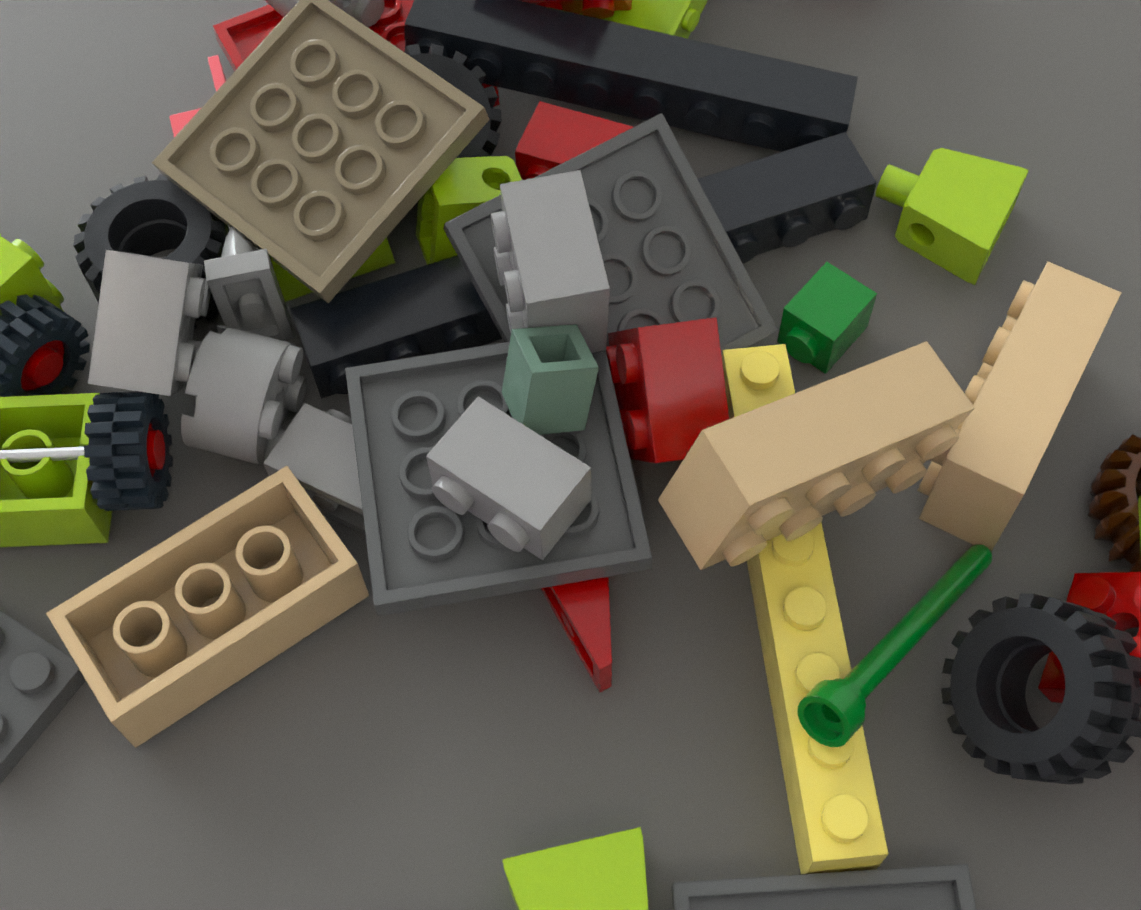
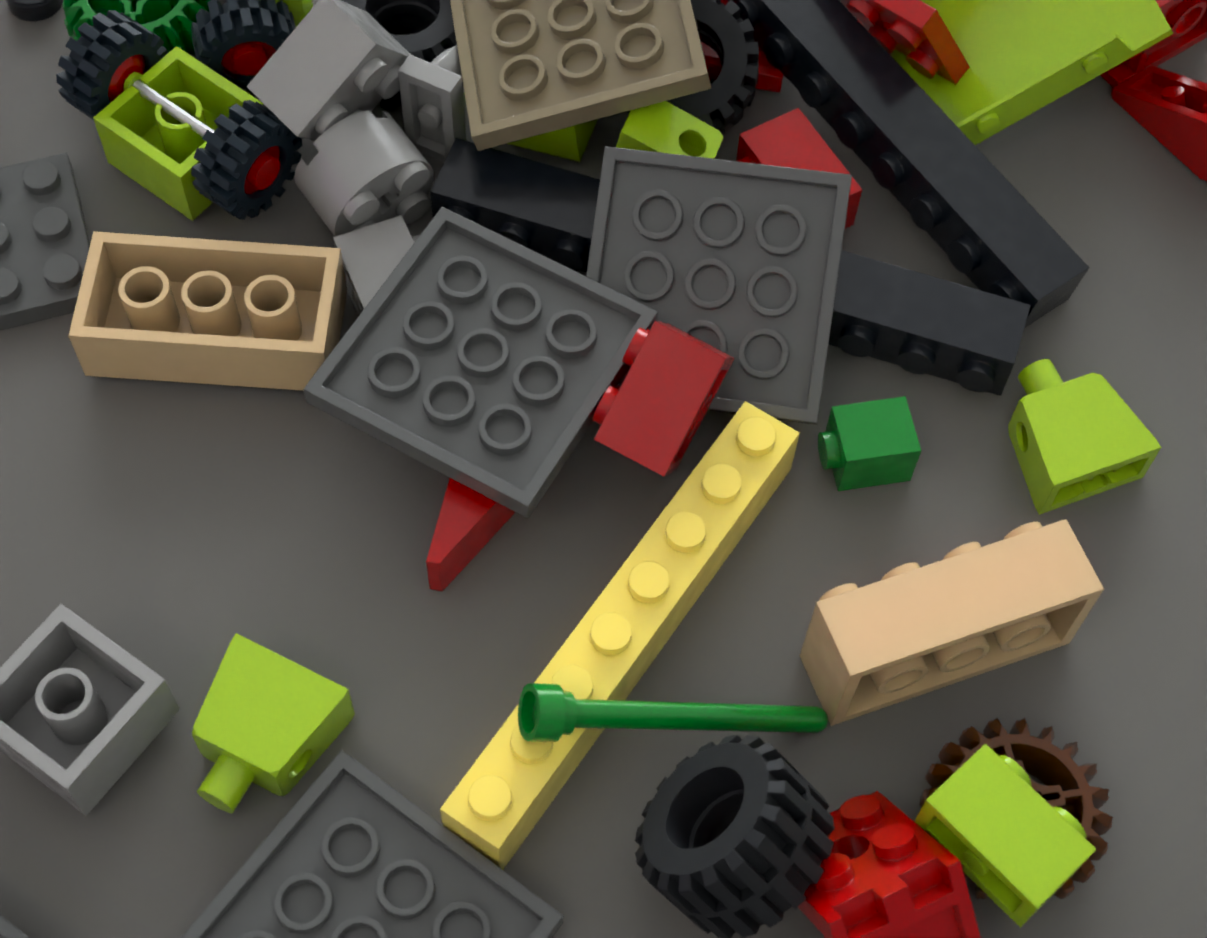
camera: 35 degrees right, 0 degrees up
(509, 479) = (470, 368): light grey brick -> none
(549, 378) = (561, 314): sand green brick -> none
(551, 257) = (637, 231): light grey brick -> none
(813, 455) = (706, 516): tan brick -> none

